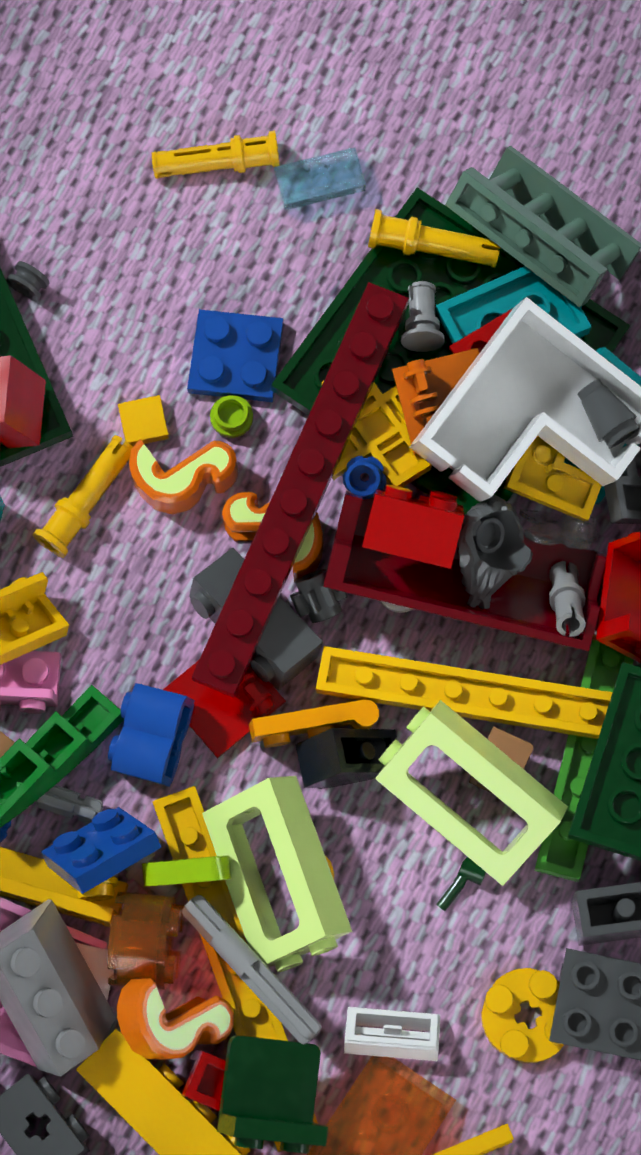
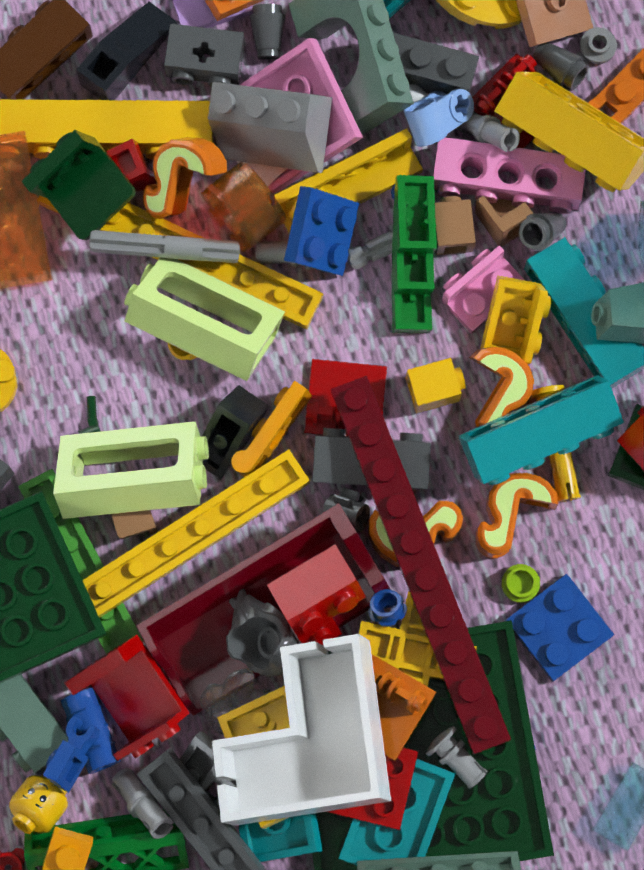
camera: 130 degrees right, 5 degrees up
(89, 566) = (512, 388): none -> orange animal
(93, 502) = (541, 430): none -> teal brick
(139, 631) = (435, 385): none -> yellow brick
(143, 420) = (573, 527): yellow tile -> none
(151, 734) = (363, 331): blue brick -> none
(186, 870) = (257, 265): lime beam -> none
(392, 1040) = (40, 284): white tile -> none
(412, 237) = (519, 809): yellow pin -> none
(567, 599) = (183, 651): light grey pin -> none
(607, 414) = (261, 785): dark grey cone -> none

